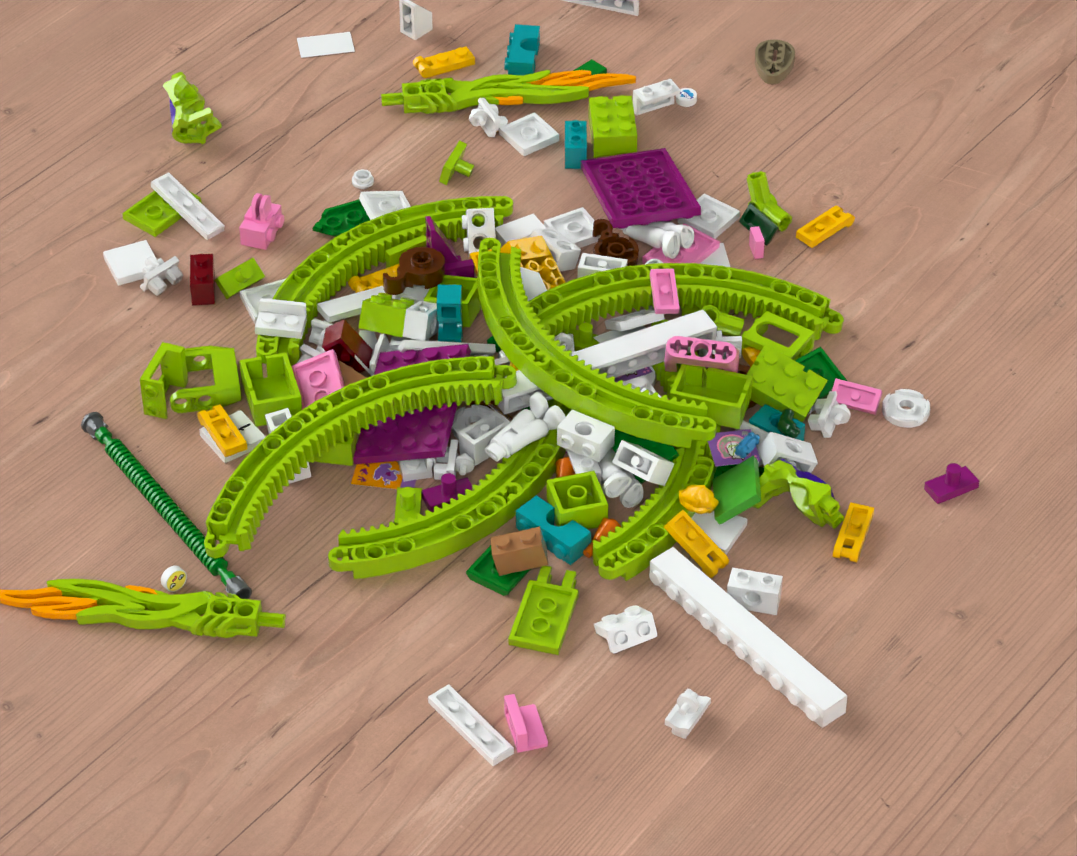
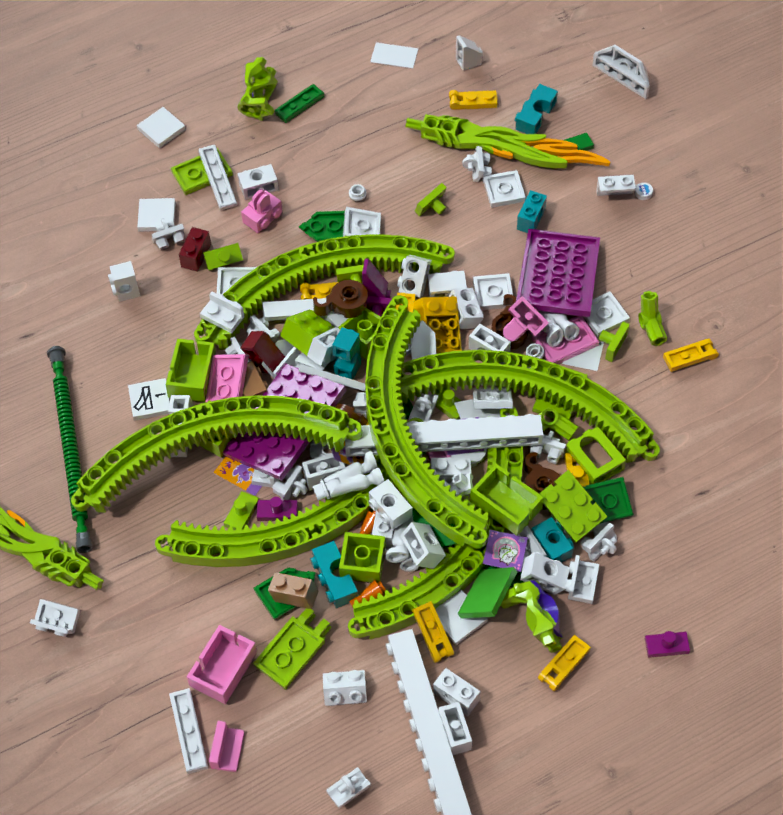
camera: 25 degrees right, 15 degrees up
(85, 179) = (161, 127): none -> white tile
(138, 328) = (123, 281): none -> white brick
(173, 373) = (132, 327): lime panel -> none
(173, 578) = (43, 516): tile -> none
(222, 430) = (139, 395): yellow plate -> none
(226, 380) = (162, 356): lime connector -> none
(236, 197) = (257, 179): none -> white brick
(241, 115) = (299, 103): none -> green tile
(249, 667) = (56, 617): none -> white bracket
(476, 652) = (222, 663): none -> bright pink piece
(612, 126) = (568, 204): lime piece -> none
(633, 231) = (525, 319): none -> bright pink brick
(664, 291) = (519, 386): bright pink plate -> none
(674, 355) = (491, 454): bright pink connector -> none
(698, 499) = (449, 594): yellow piece -> none
(735, 234) = (614, 340): none -> lime tile
(747, 444) = (515, 554): dark azure piece -> none
(754, 217) = (638, 336): dark green tile -> none
(756, 242) = (627, 353): bright pink tile -> none
(776, 617) = (455, 728): none -> white brick
(780, 67) = (737, 183): dark tan piece -> none
(786, 425) = (554, 545): dark green arm -> none
(830, 454) = (583, 580): none -> white bracket
(857, 396) = (631, 532): bright pink plate -> none
(906, 417) = (664, 565): white tile -> none

